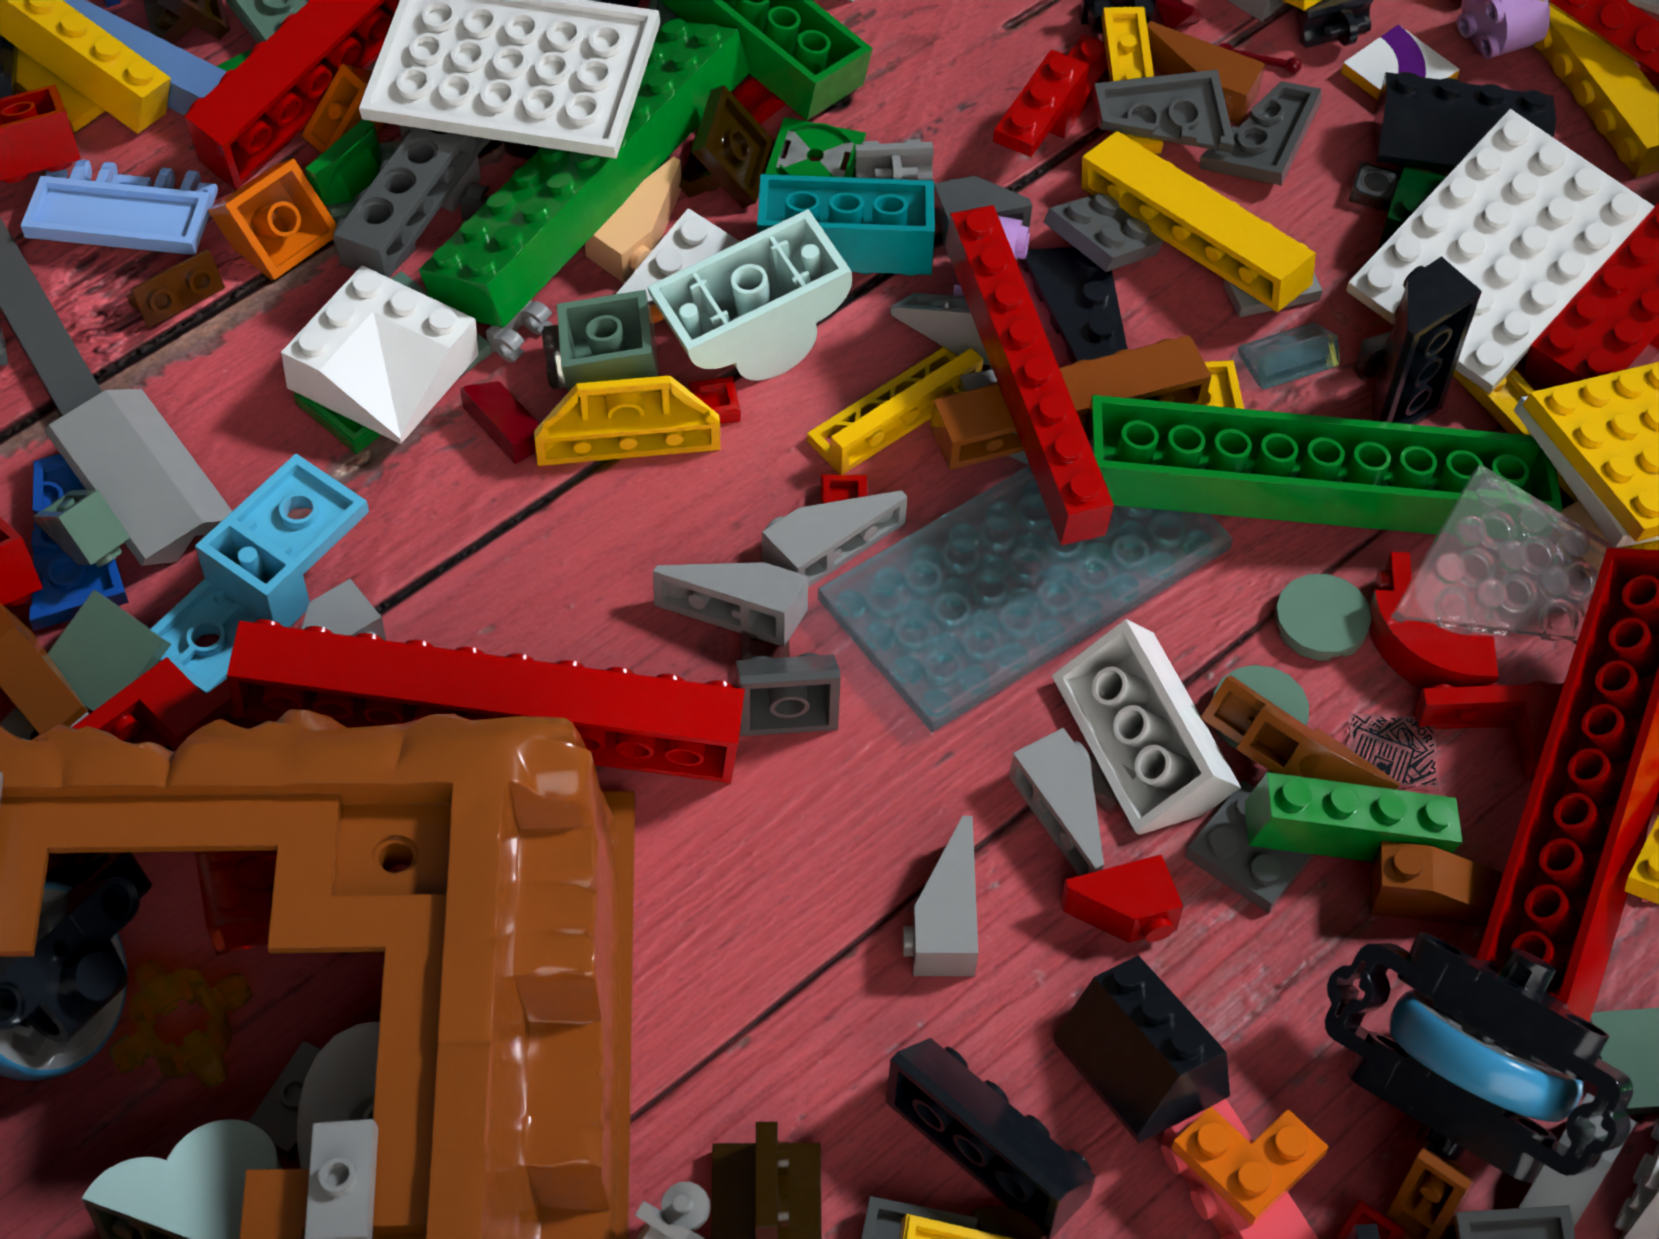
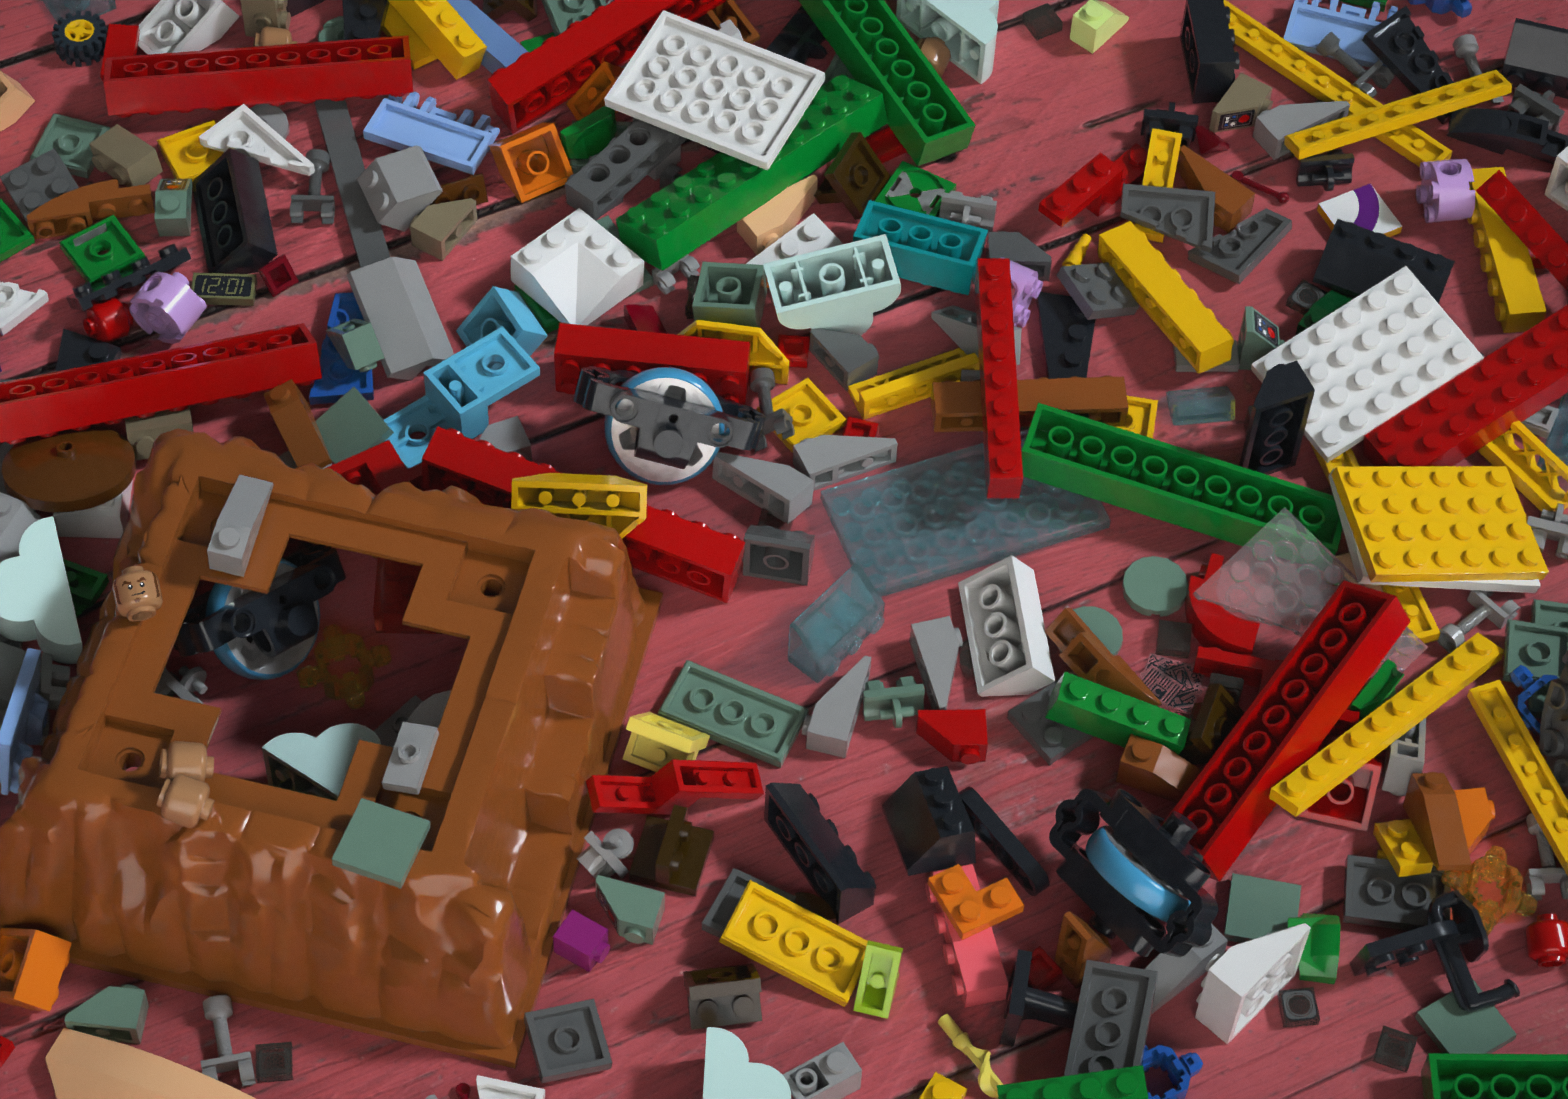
camera: 15 degrees right, 0 degrees up
(93, 291) = (399, 187): none -> light grey slope
(169, 334) = (442, 226): none -> dark tan slope
(280, 433) = (505, 309): none -> medium azure slope
(492, 680) = (584, 497): none -> yellow wedge
(526, 464) = (716, 361): none -> red brick
(571, 538) = (665, 421): none -> black piece
(687, 454) = (762, 382): none -> dark grey bar
(706, 1026) = (659, 740): none -> light yellow bracket
(742, 1092) = (674, 784): none -> red bracket
(753, 487) = (810, 411): none -> yellow tile
(790, 392) = (844, 355): none -> dark grey slope
(791, 949) = (734, 713): none -> sand green tile
(904, 781) = (835, 624): none -> clear light blue slope
(1022, 877) = (893, 702): none -> sand green hips
(1055, 189) = (1078, 252): none -> yellow animal
(1260, 1055) = (1004, 843): none -> black beam
(1339, 250) = (1256, 337): none -> sand green slope
(1375, 685) = (1173, 639): none -> clear smoke tile
(1475, 741) = (1232, 684): none -> clear smoke tile
(1489, 800) = (1210, 724): none -> dark brown bracket

